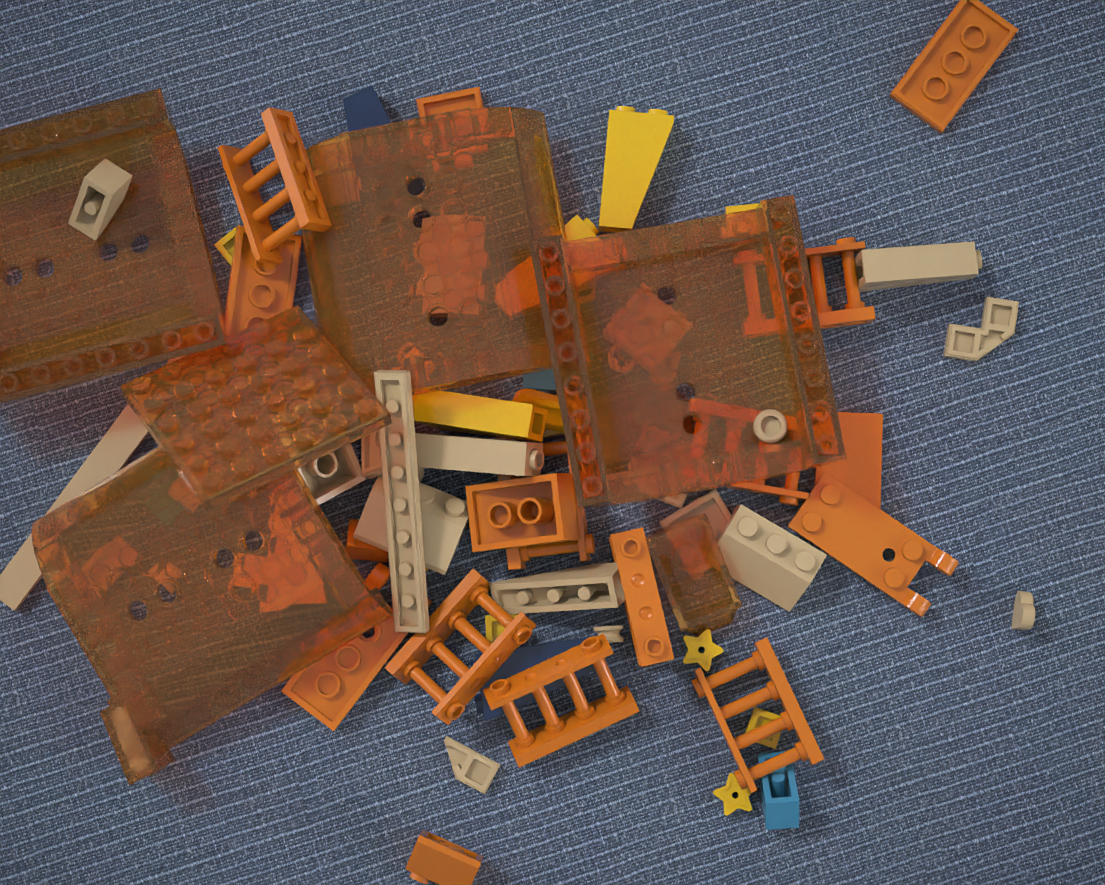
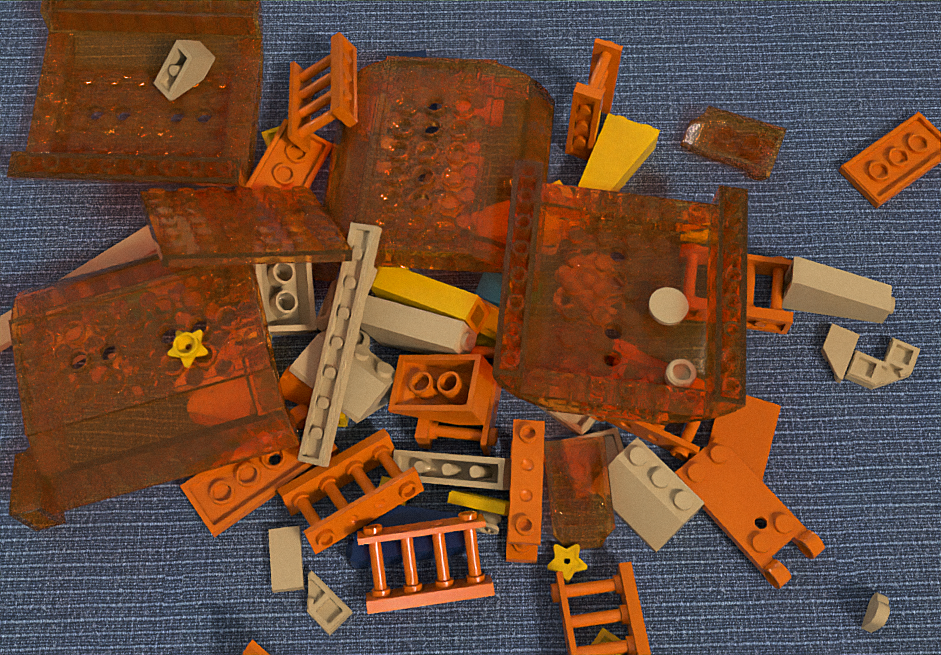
camera: 15 degrees right, 20 degrees down
(243, 572) = (179, 347): none -> yellow plate
(416, 731) = (286, 559): none -> tan tile
(588, 137) = (592, 99): none -> orange fence
(598, 620) = (479, 502): none -> yellow tile
(738, 350) = (668, 306): none -> tan piece
(761, 100) = (735, 141): none -> clear orange slope
(931, 327) = (839, 349): none -> tan tile

